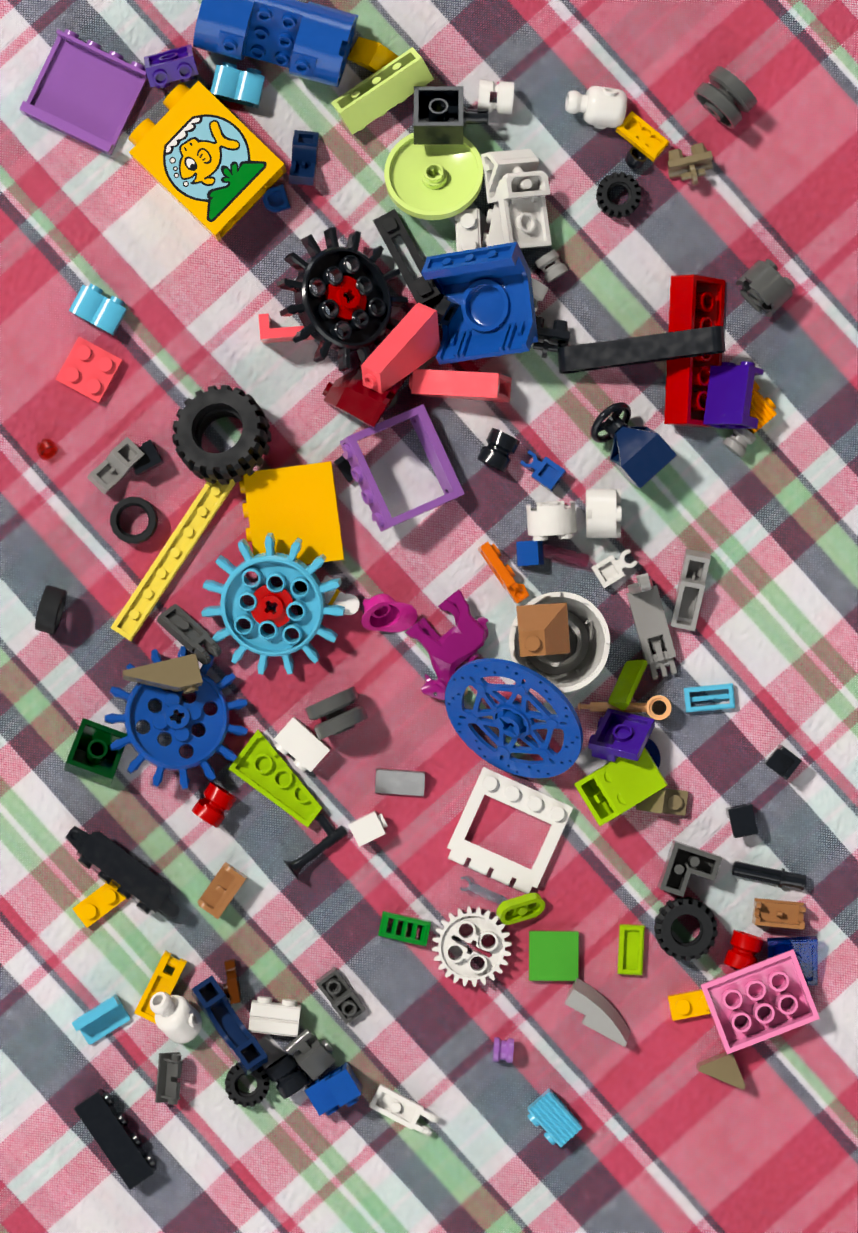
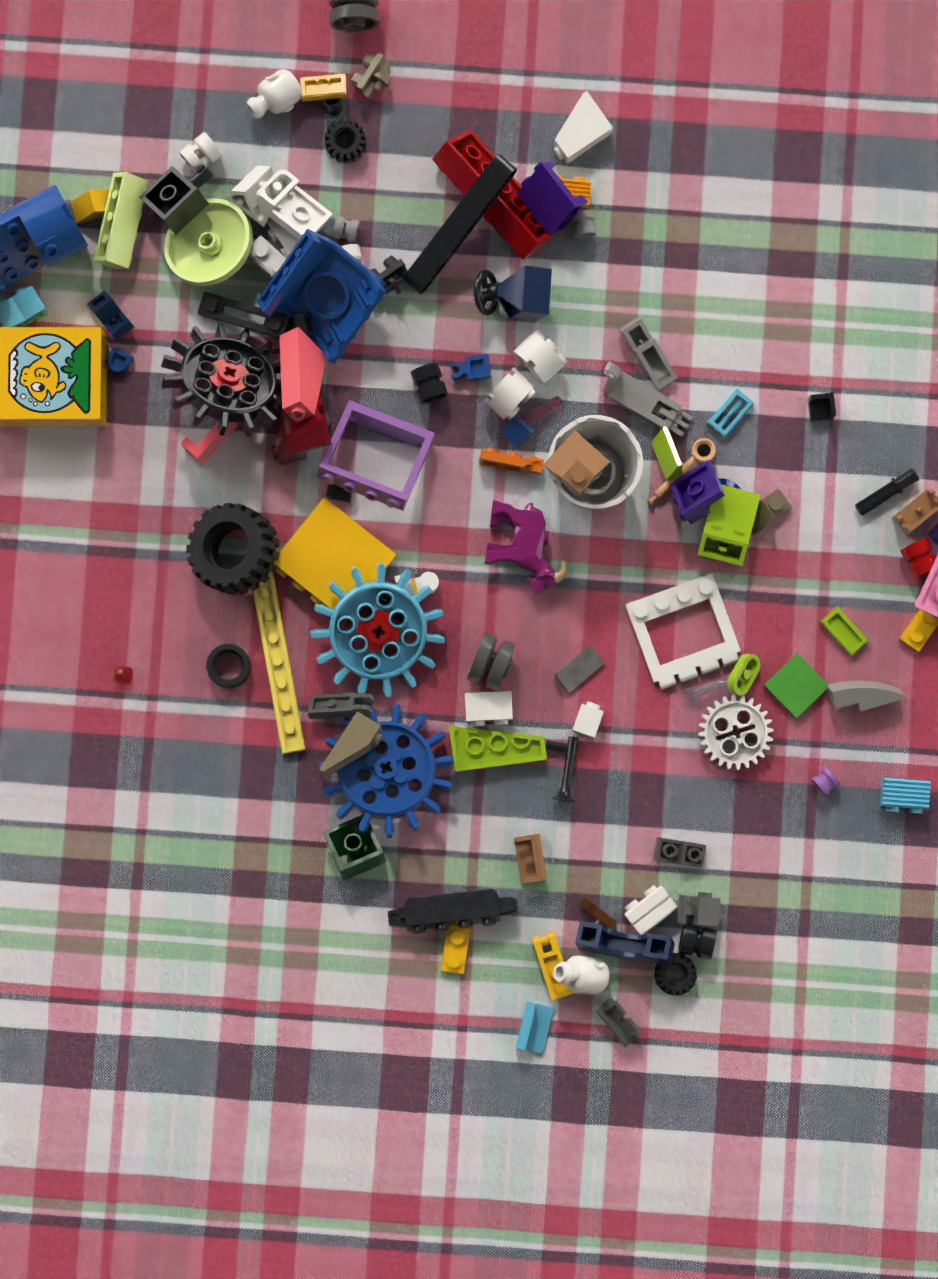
camera: 45 degrees left, 5 degrees down
(50, 609) = (230, 779): black tyre -> none
(89, 369) = (101, 594): coral plate -> none
(98, 309) = (68, 547): medium azure brick -> none
(115, 1138) = (622, 1099): black brick -> none
(116, 465) = (181, 640): light grey slope -> none
(150, 459) = (196, 617): black panel -> none
(214, 804) = (468, 804): red wheel -> none
(334, 1089) = (738, 919): blue brick -> none
(387, 615) = (461, 564): dark pink piece -> none
(401, 1109) = (796, 889): white hinge -> none
(402, 937) = (695, 753): green slope -> none
(461, 385) = (362, 364): coral slope -> none
(514, 718) = (614, 546): blue piece -> none
(610, 569) = (581, 390): white plate -> none
(683, 862) = (821, 538): dark grey brick -> none
(701, 943) = (880, 566): black tyre -> none
(742, 820) = (833, 471): black panel -> none
(765, 287) = (501, 106): dark grey brick -> none
(810, 365) = (581, 130): none -> white slope

